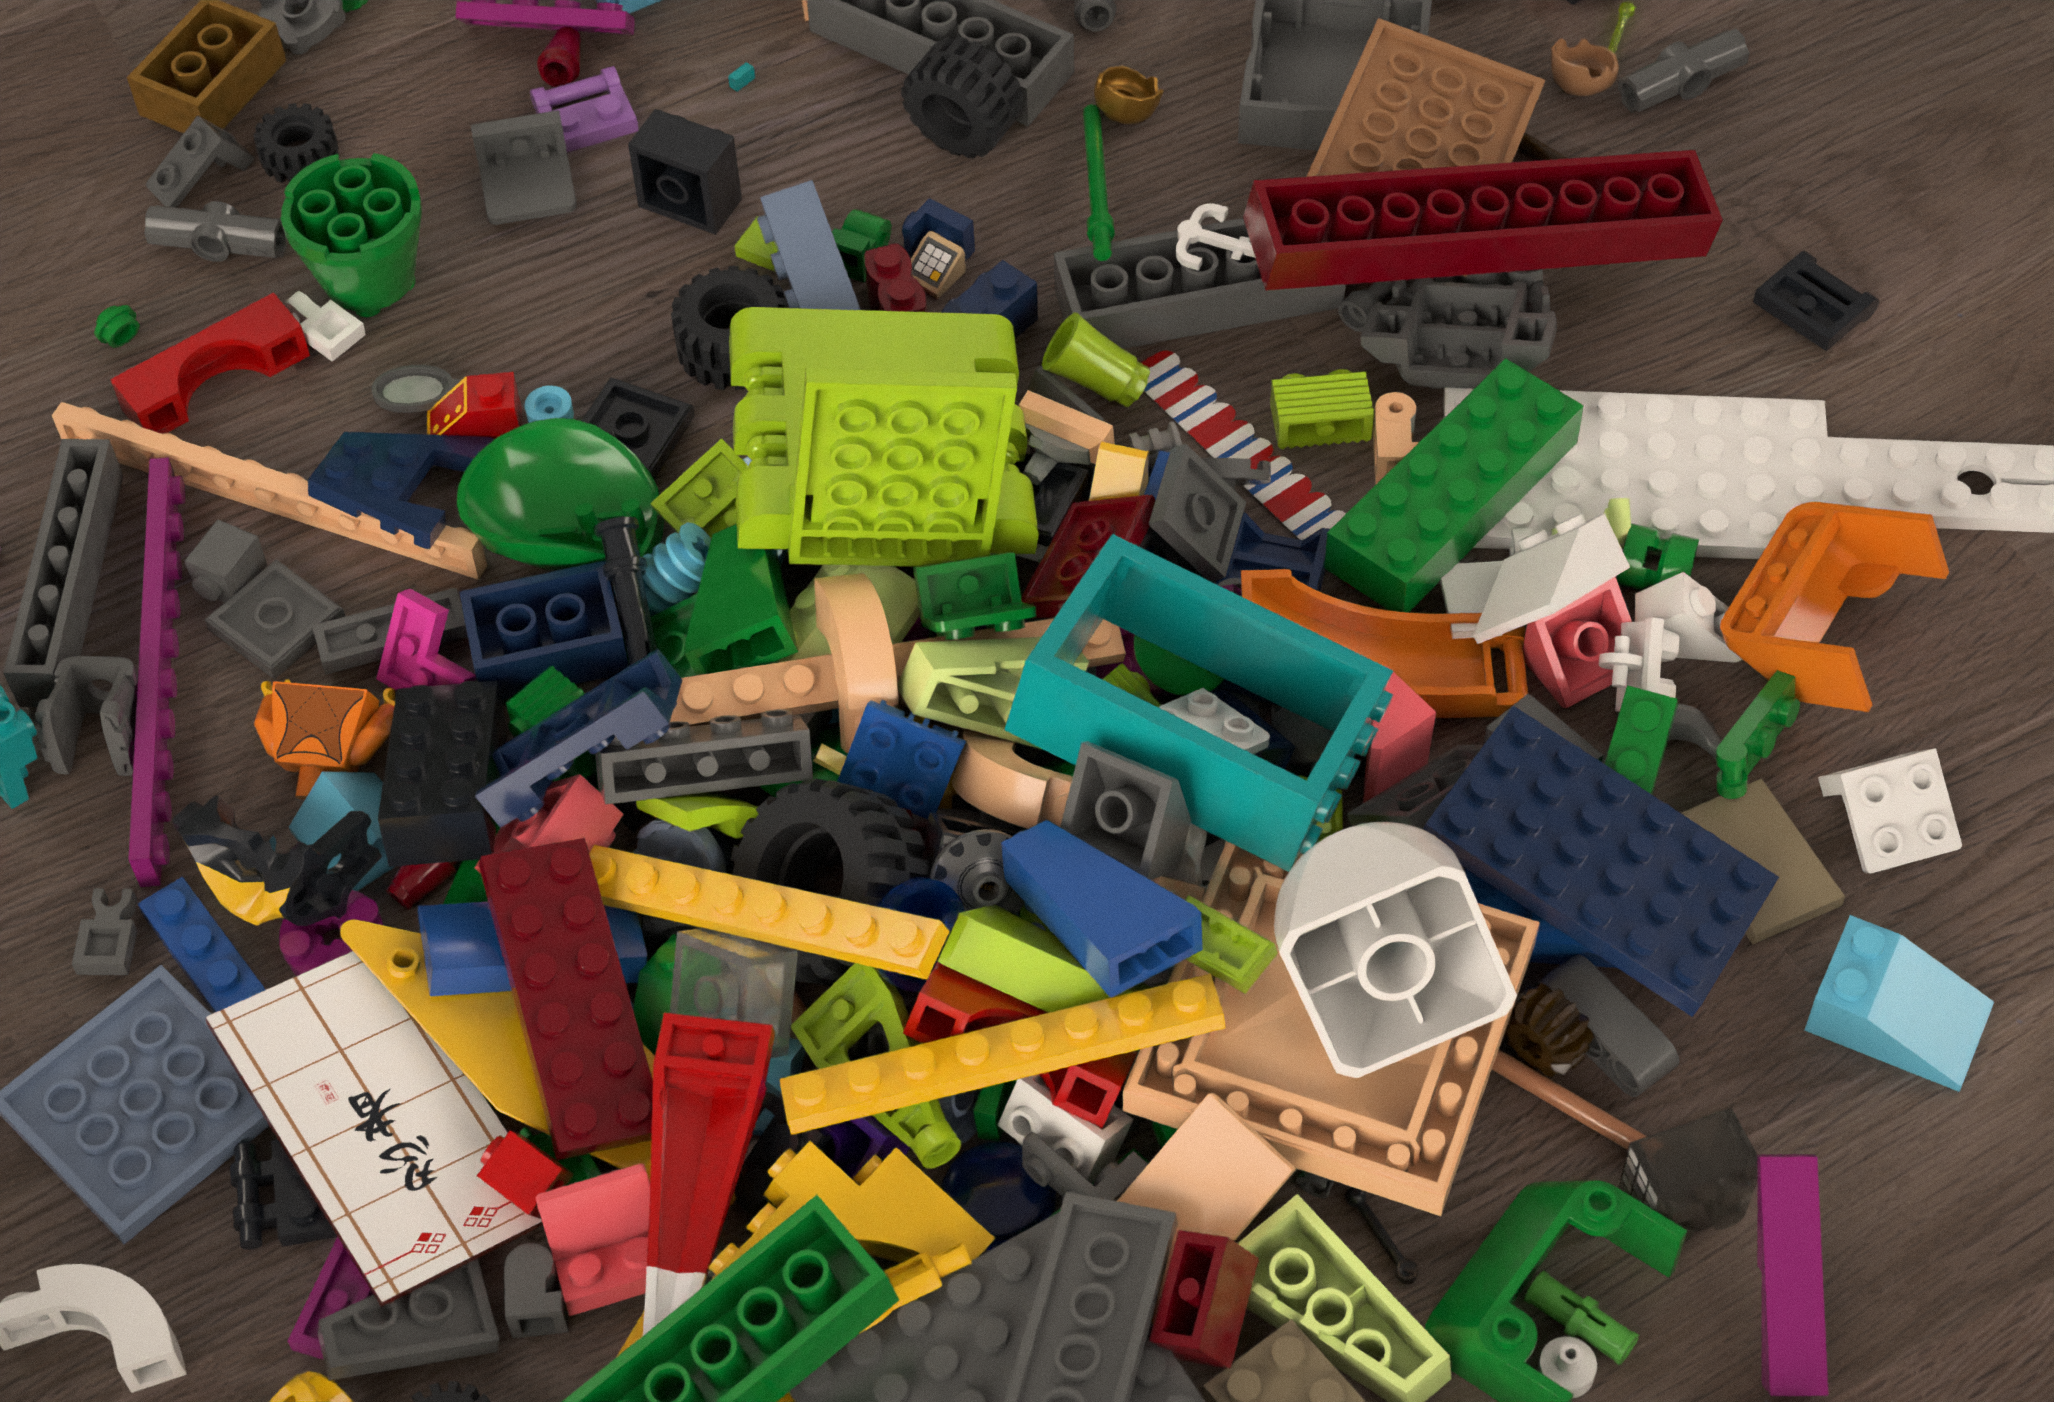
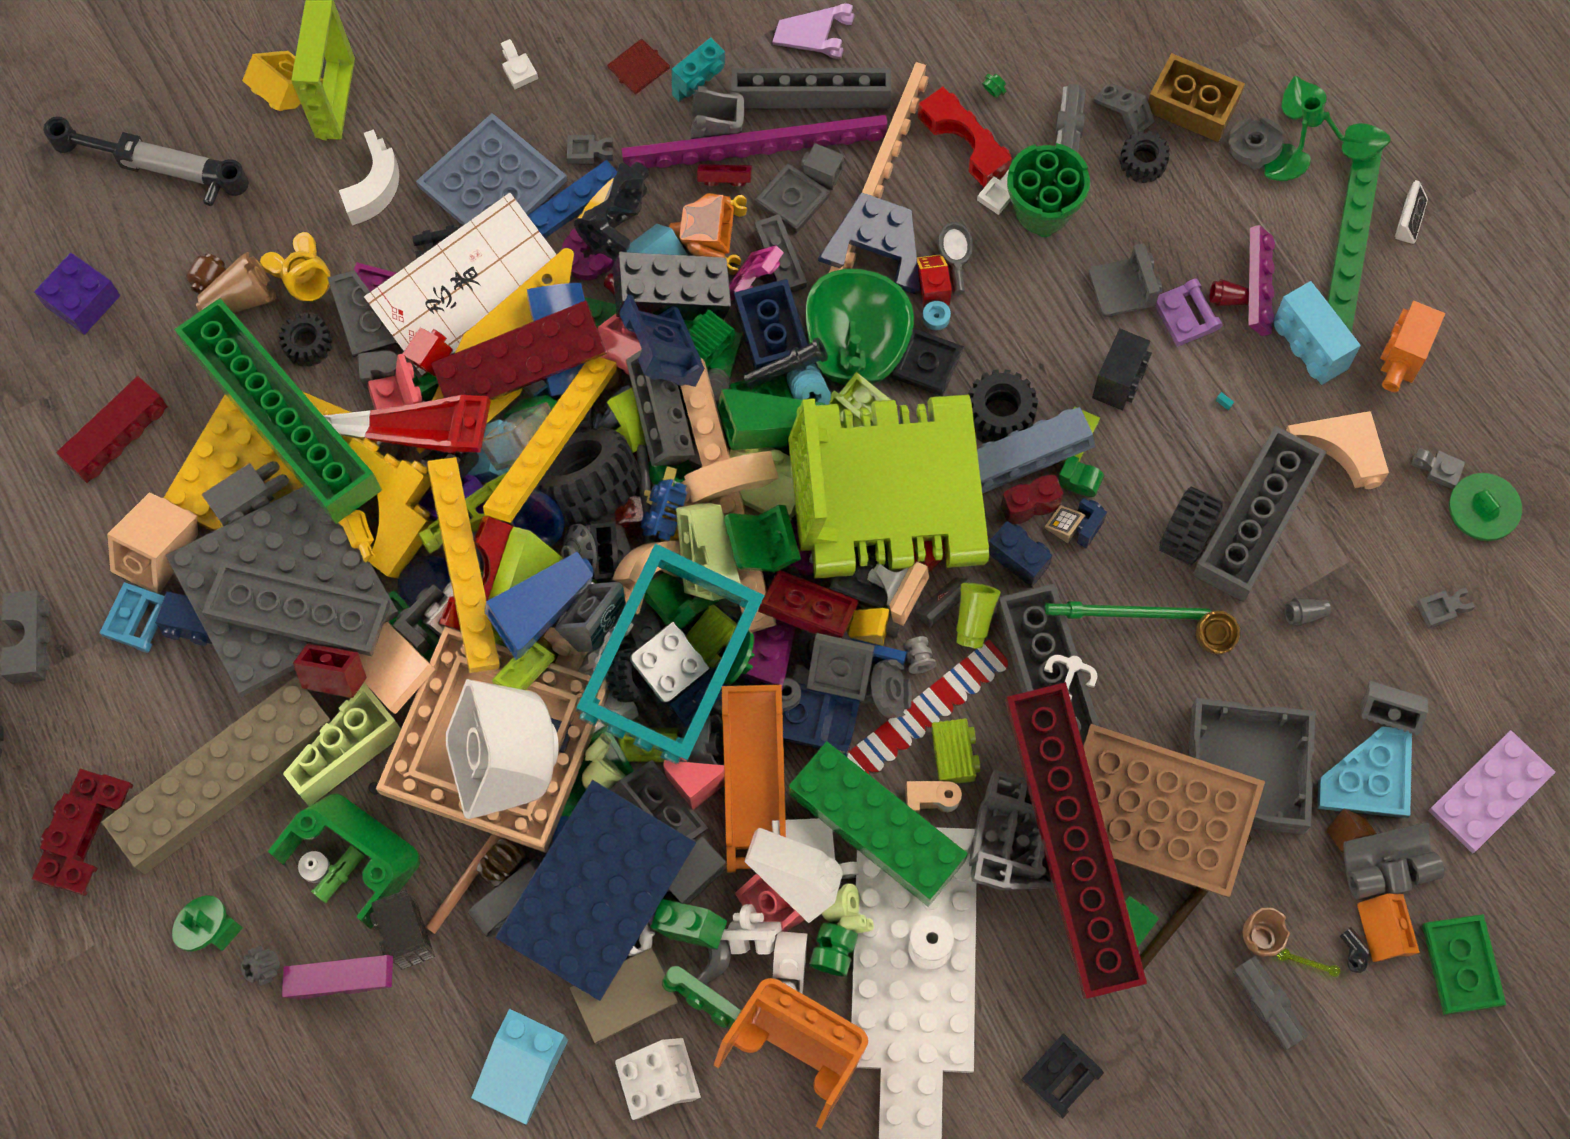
camera: 90 degrees right, 15 degrees up
(209, 712) = (734, 174): none -> dark red plate
(1653, 389) = (934, 931): none -> white piece

